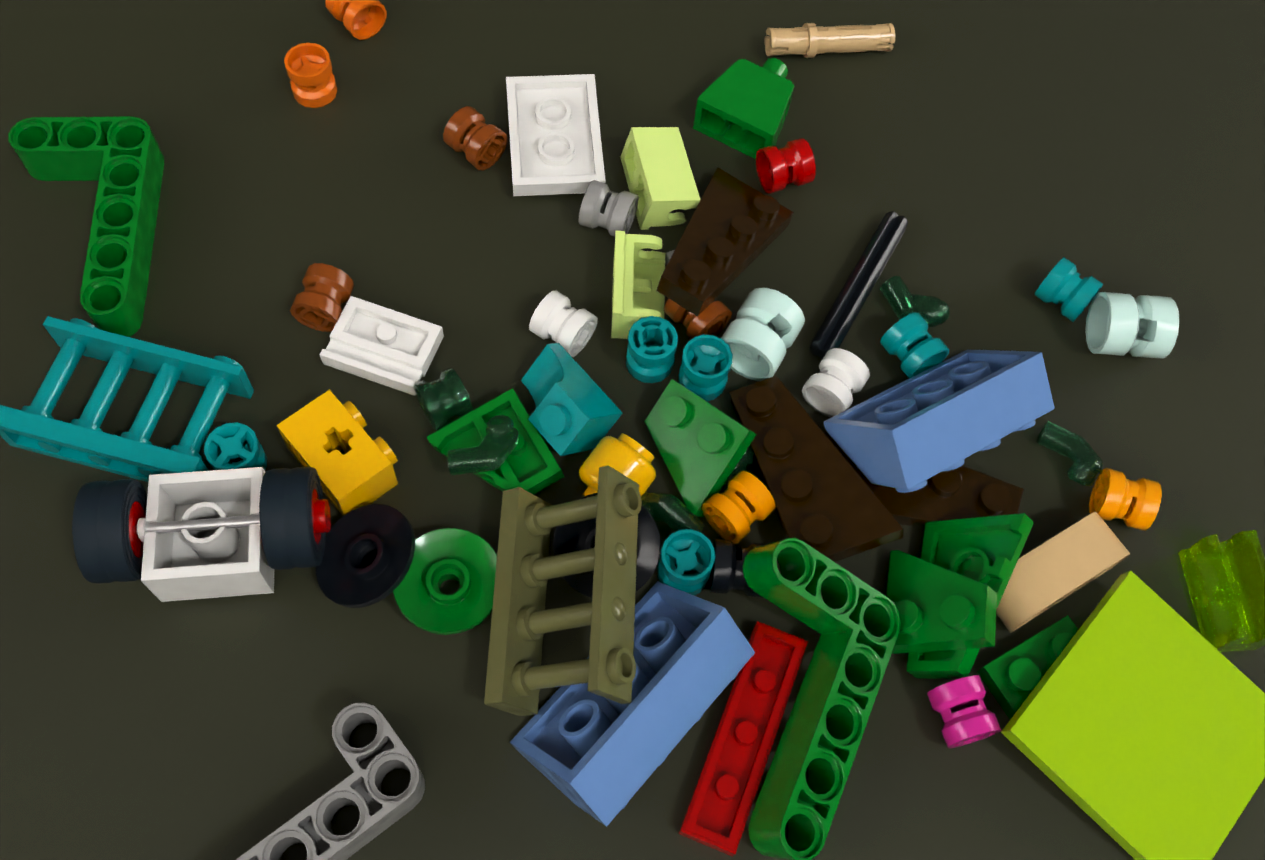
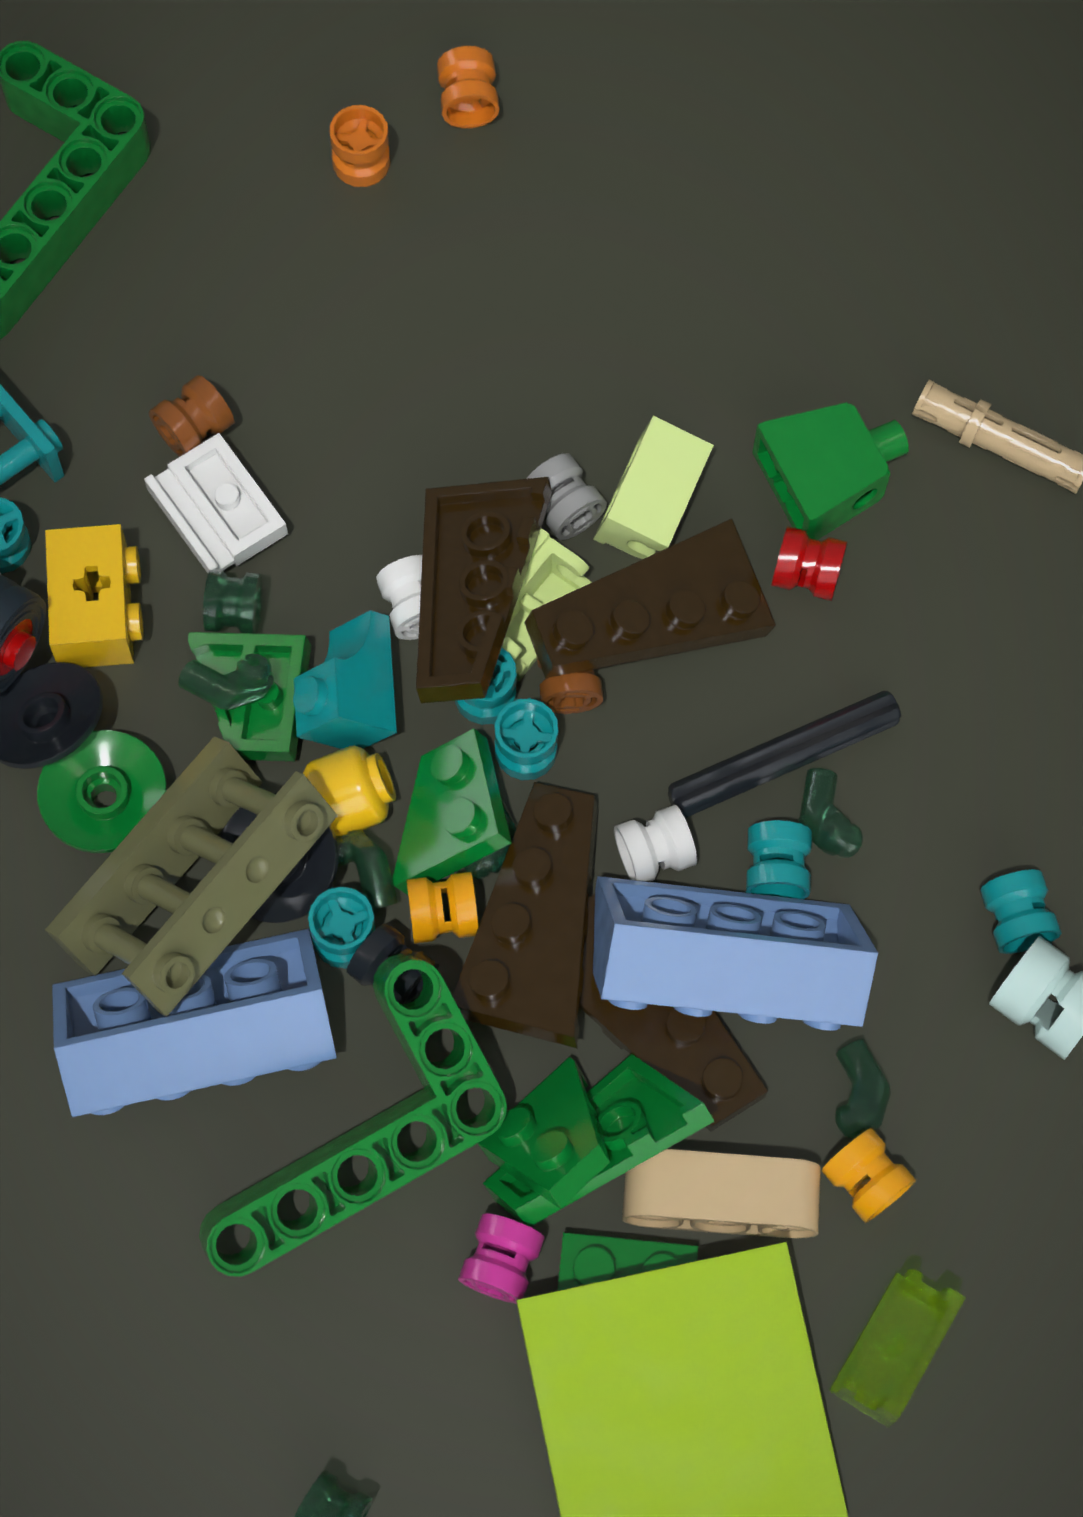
camera: 40 degrees right, 5 degrees up
(470, 134) = (481, 319): dark orange wheel -> none
(554, 134) = (576, 369): white plate -> none
(604, 285) = (471, 578): none -> dark brown wing
(743, 740) = (274, 1132): red tile -> none
(762, 333) = (592, 747): light aqua wheel -> none

